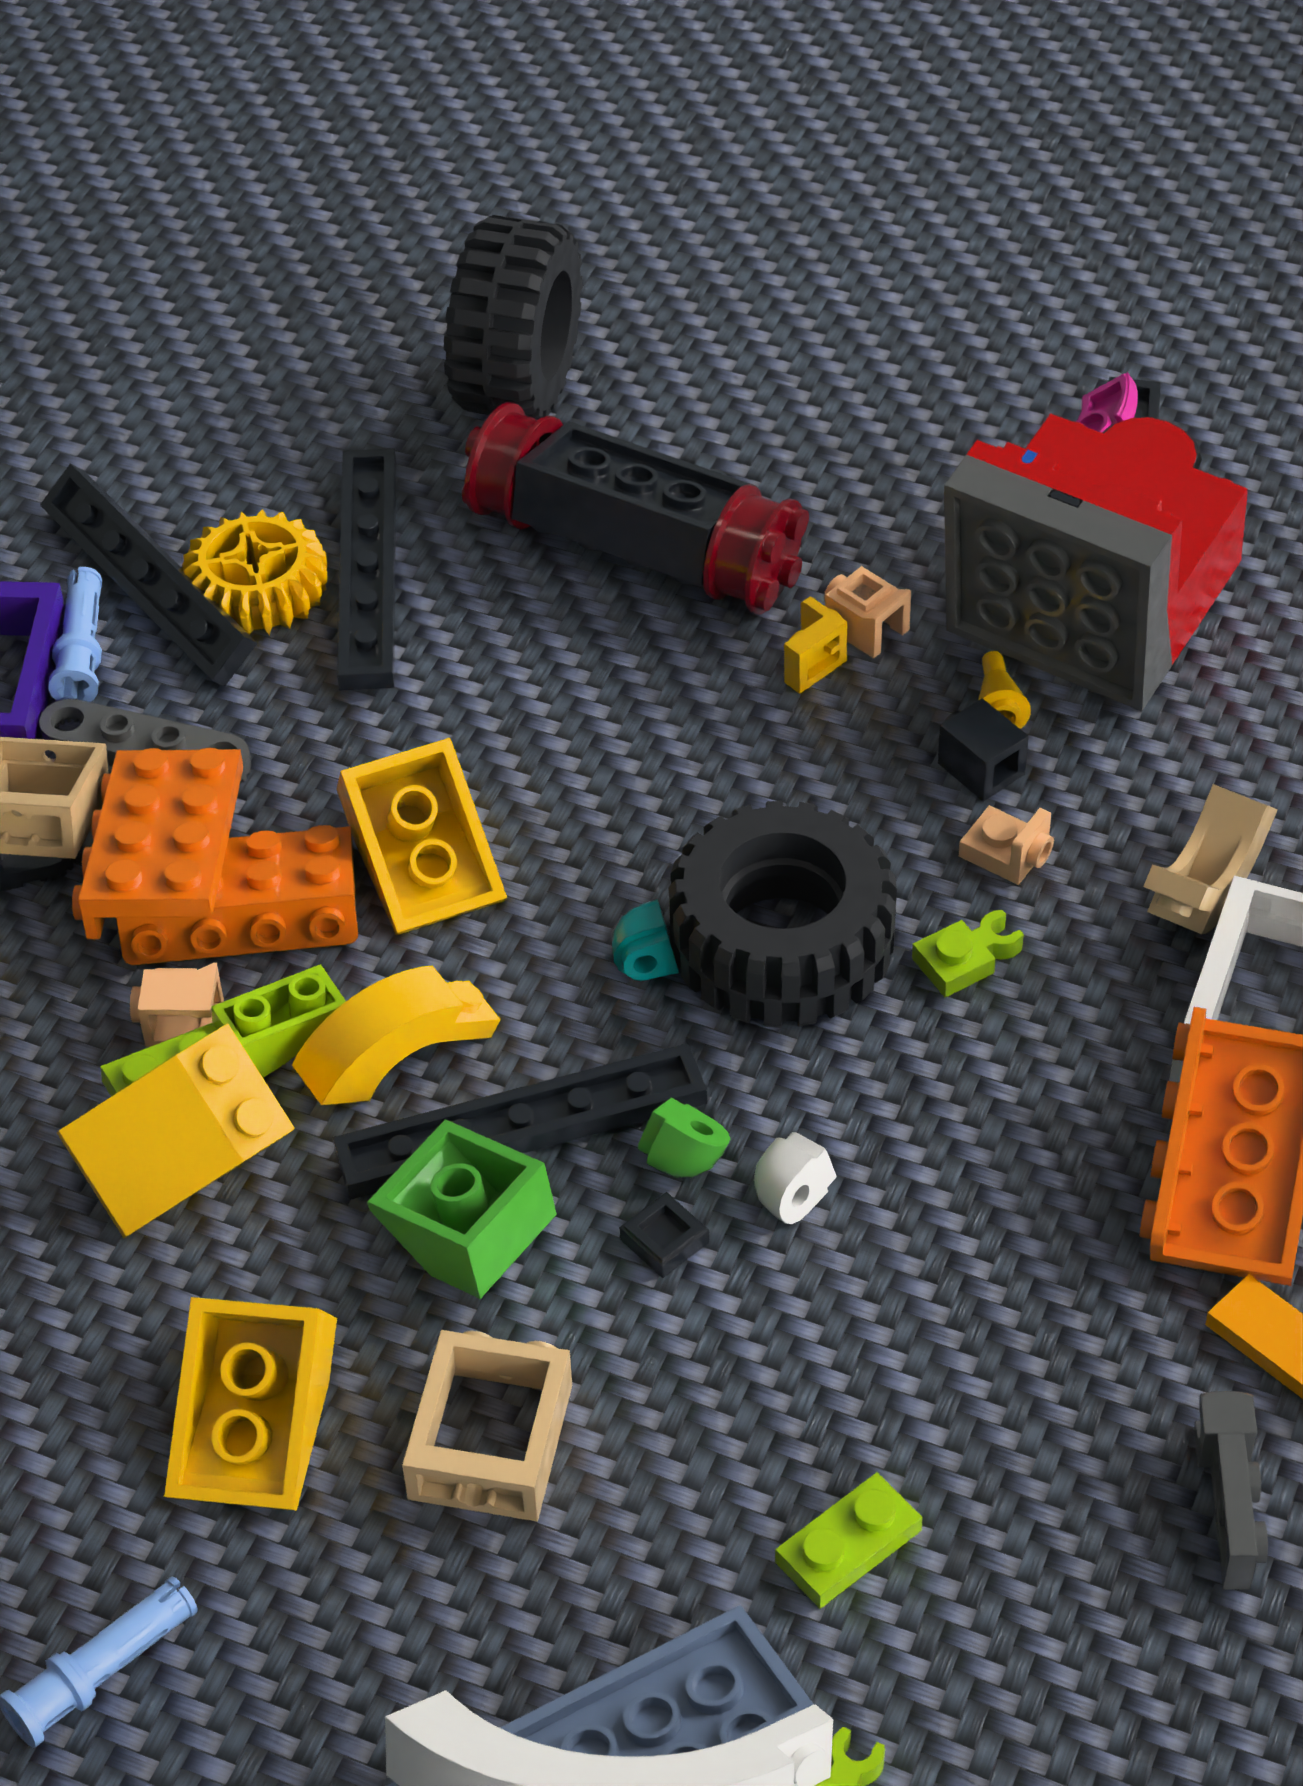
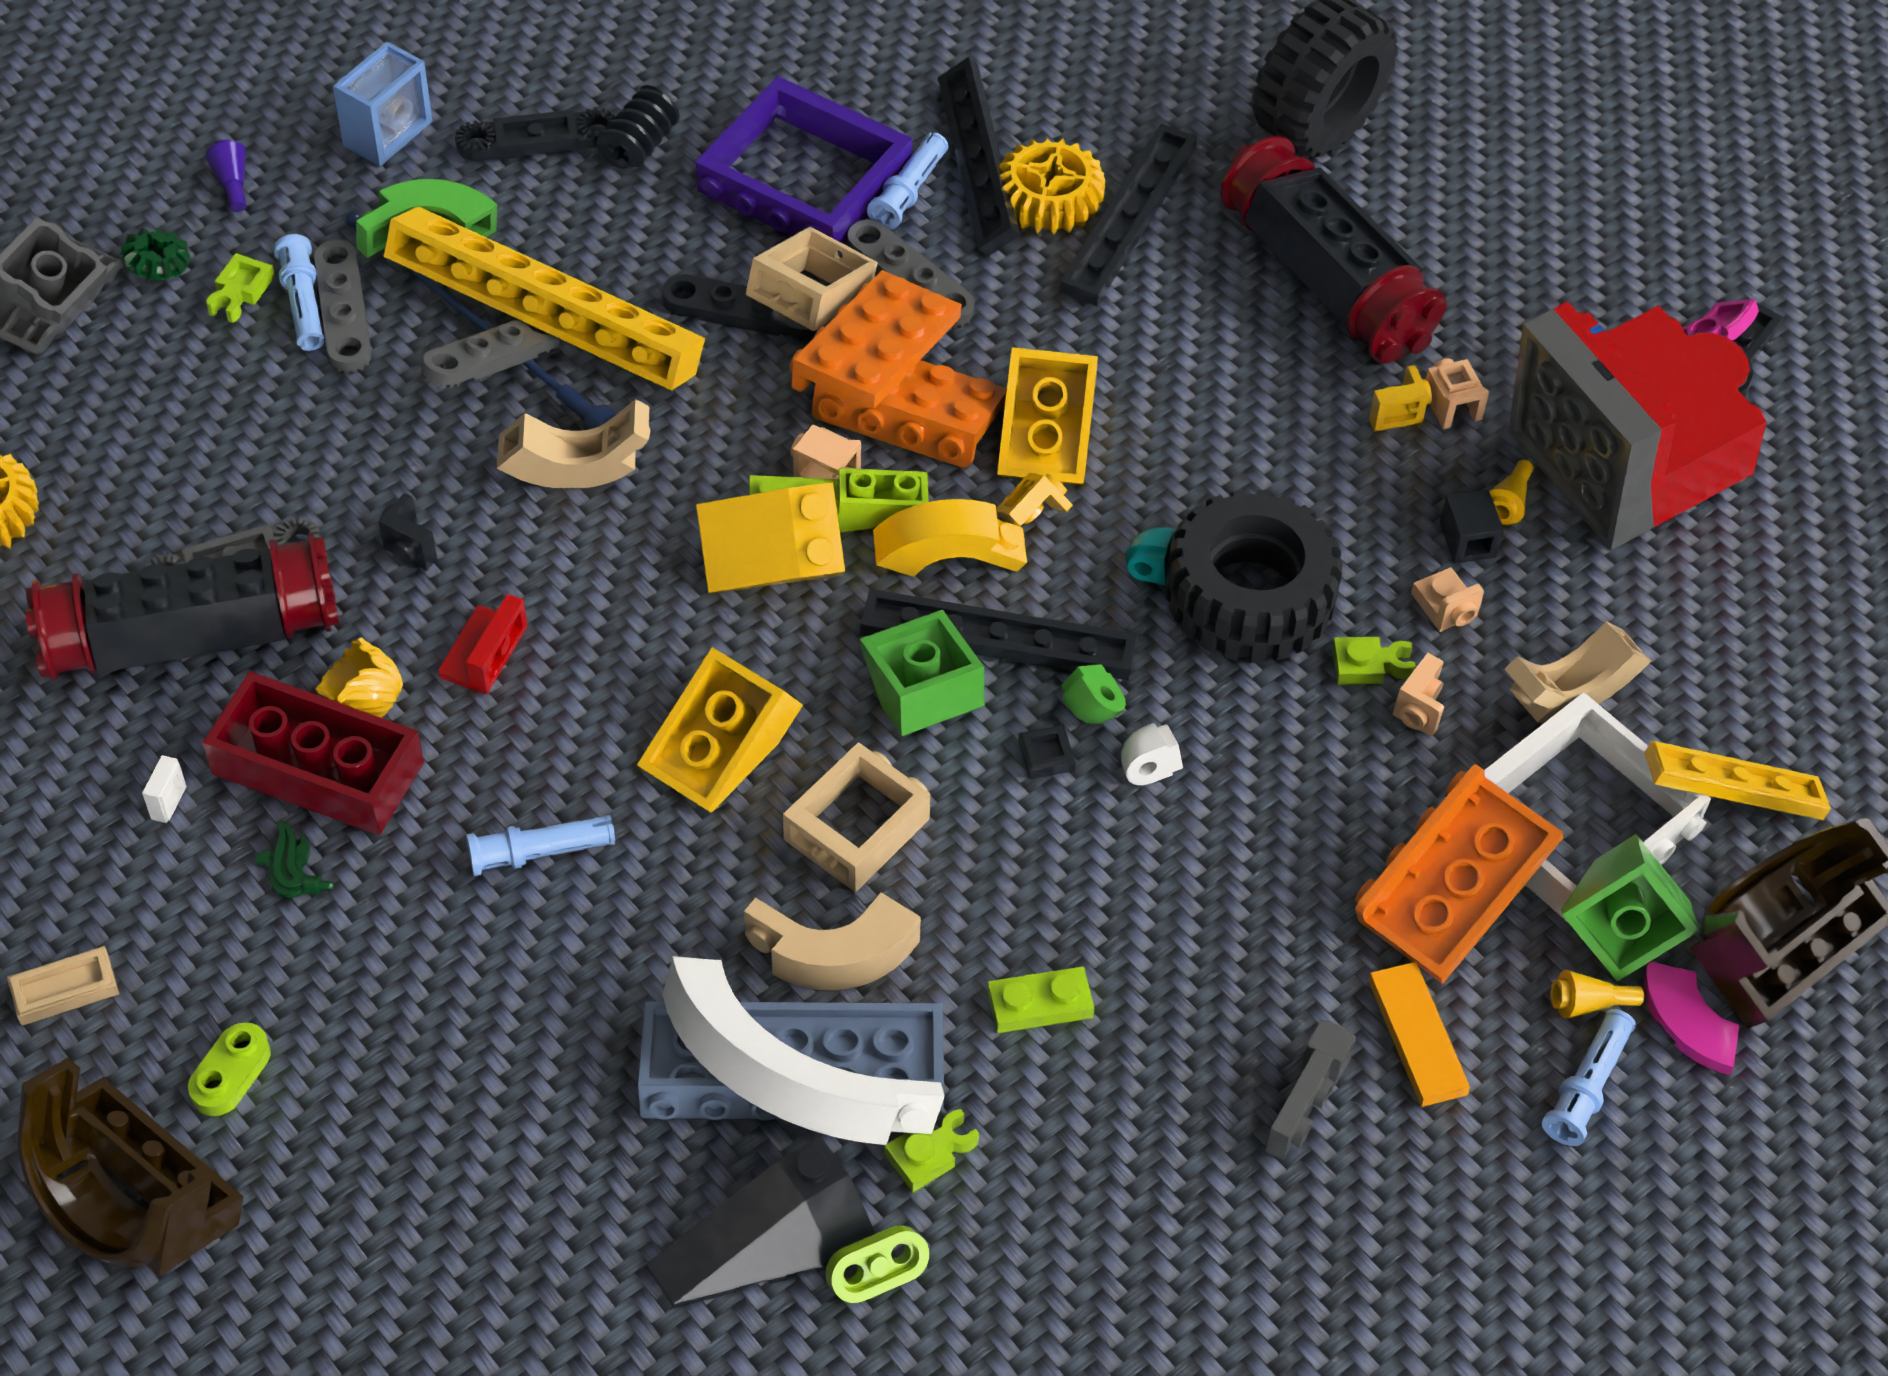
camera: 25 degrees right, 5 degrees up
(459, 939) = (1026, 499): none -> yellow bracket
(566, 1618) = (838, 956): none -> tan arch
(1053, 975) = (1418, 695): none -> light nougat bracket

